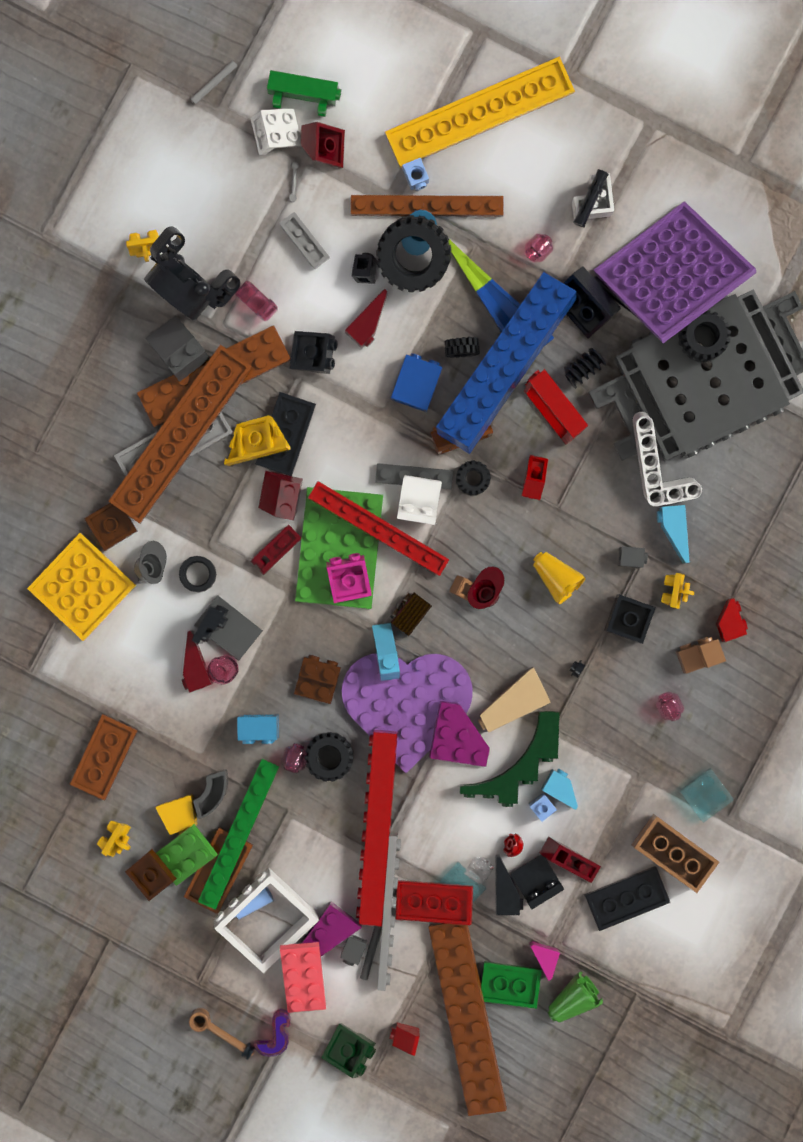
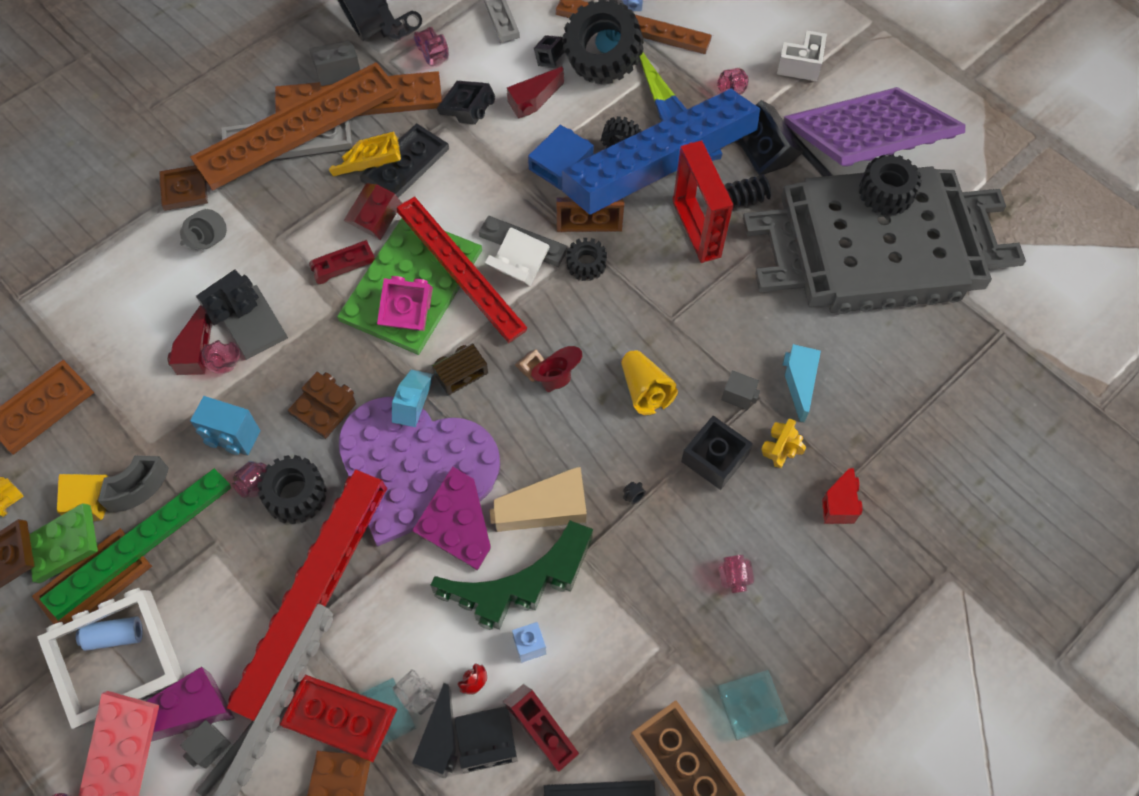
camera: 25 degrees right, 25 degrees down
(81, 586) = (119, 233): yellow plate -> none
(183, 577) = (243, 244): black tyre -> none
(535, 477) = (654, 278): red slope -> none
(560, 788) = (560, 626): medium azure slope -> none
(594, 191) = (806, 38): black pin -> none
(653, 467) = (794, 301): white beam -> none
(701, 655) = (795, 524): medium nougat brick -> none

